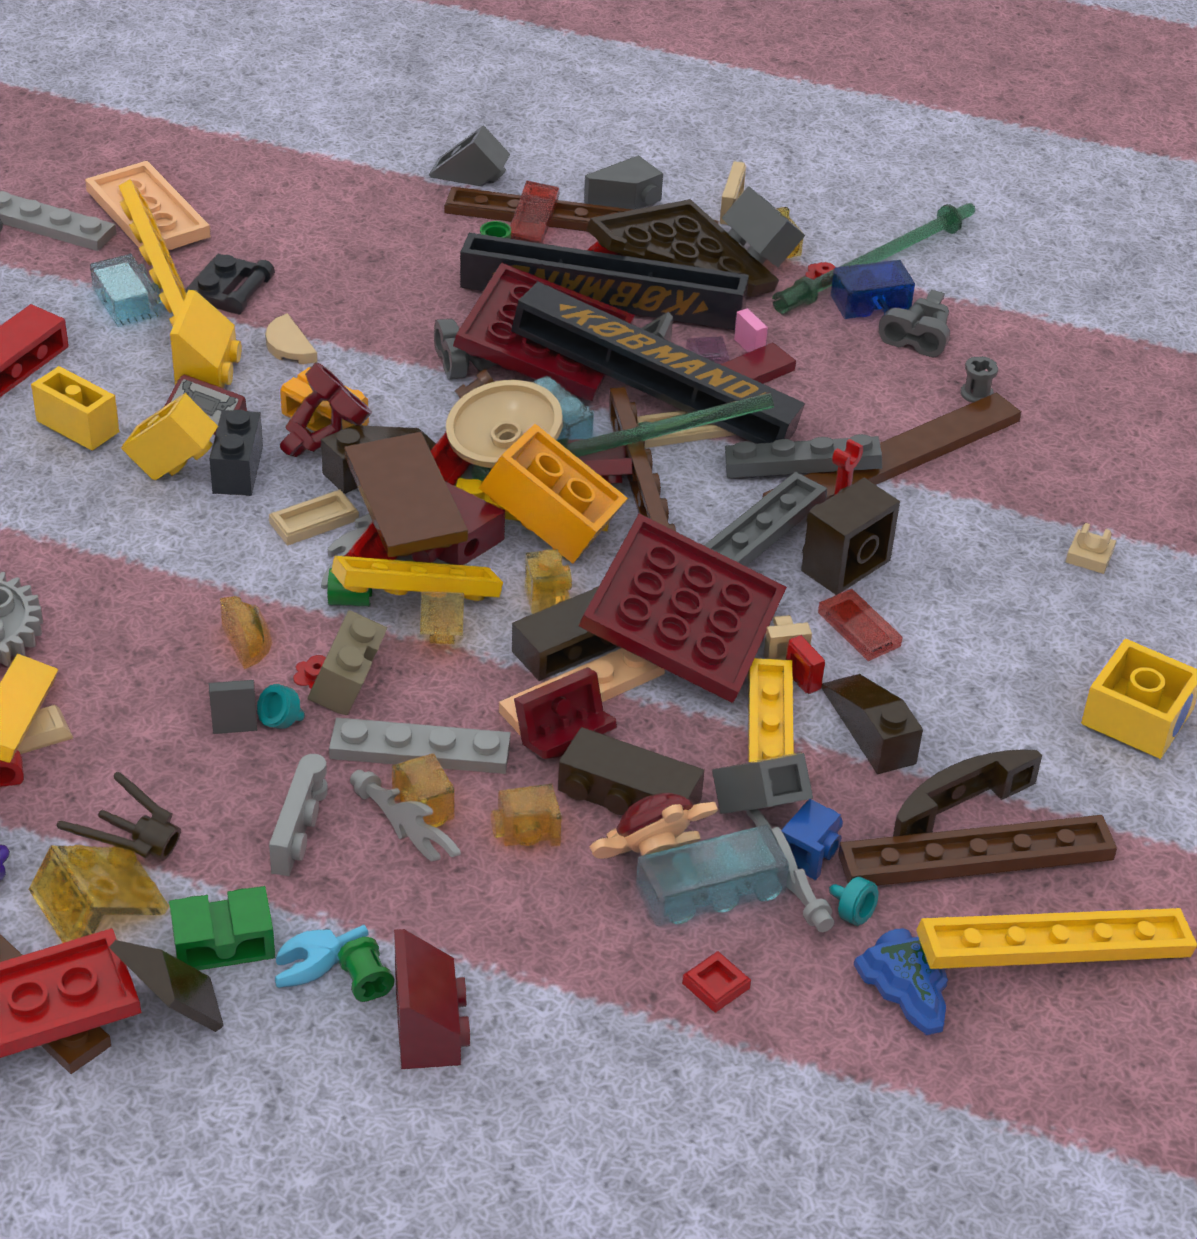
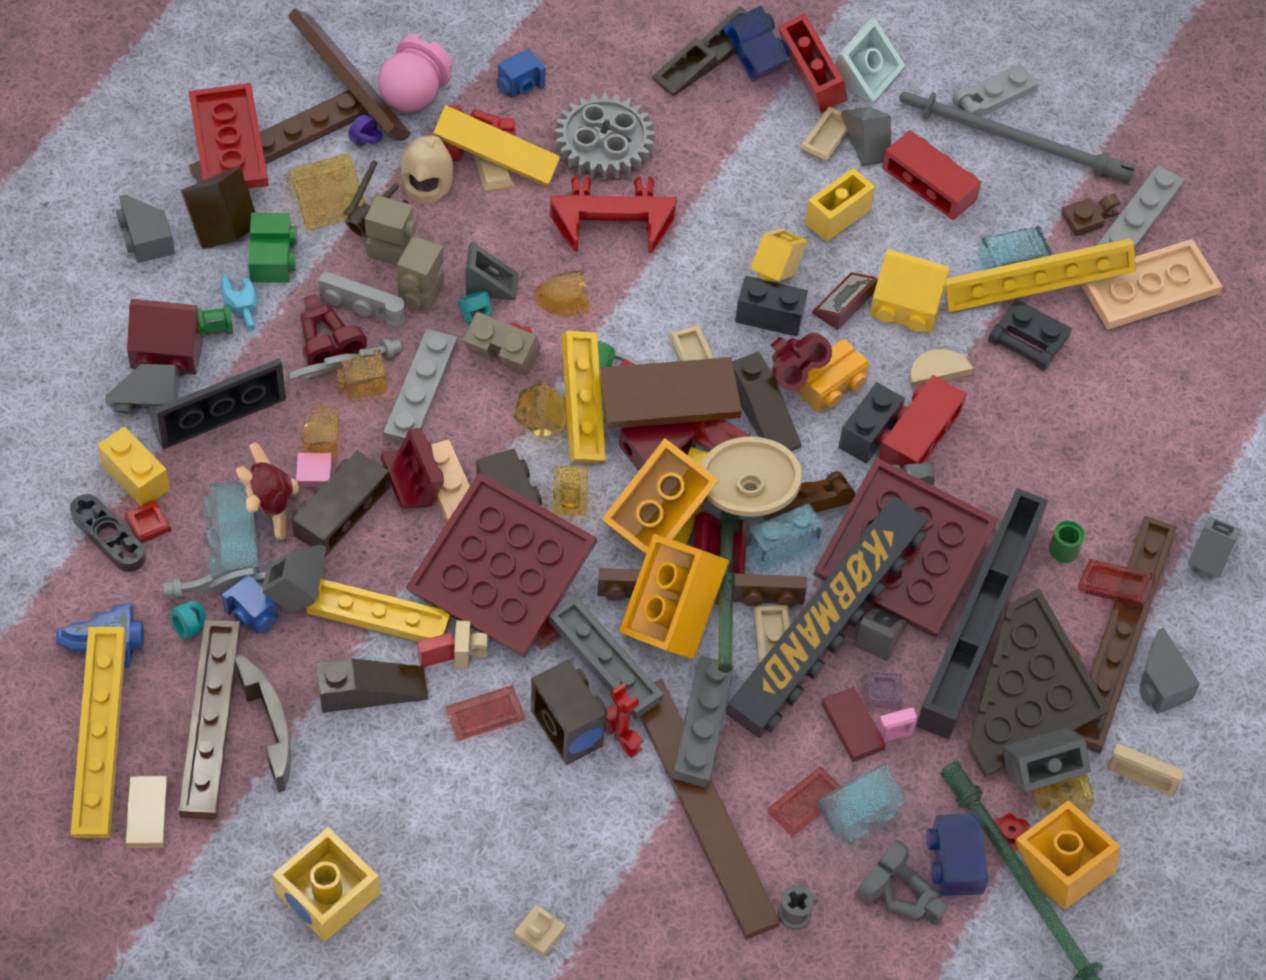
camera: 100 degrees right, 15 degrees up
(47, 778) = (427, 159): none -> tan piece
(51, 253) = (1086, 216): none -> reddish brown plate
(108, 623) = (569, 209): none -> red hose
(187, 783) = (389, 229): none -> dark tan brick
(211, 1084) = (147, 229): none -> dark grey slope
(258, 744) = (420, 274): none -> dark tan brick
(373, 820) = (343, 339): none -> dark red piece
(378, 338) = (922, 423): none -> red brick
(385, 369) = (869, 421): none -> black brick
(512, 1012) = (145, 388): none -> dark grey slope
(519, 919) = (219, 404): none -> black slope
(581, 825) = (313, 468): none -> bright pink tile
(647, 999) = (133, 467): none -> yellow brick
(679, 466) = (673, 596): none -> light orange slope
(750, 1000) = (105, 519): none -> black beam
(849, 344) = (861, 802): none -> clear light blue brick
(851, 216) = (1068, 854): none -> light orange slope
(855, 391) = (798, 805): none -> clear red tile
(1124, 889) = (147, 812): none -> tan tile

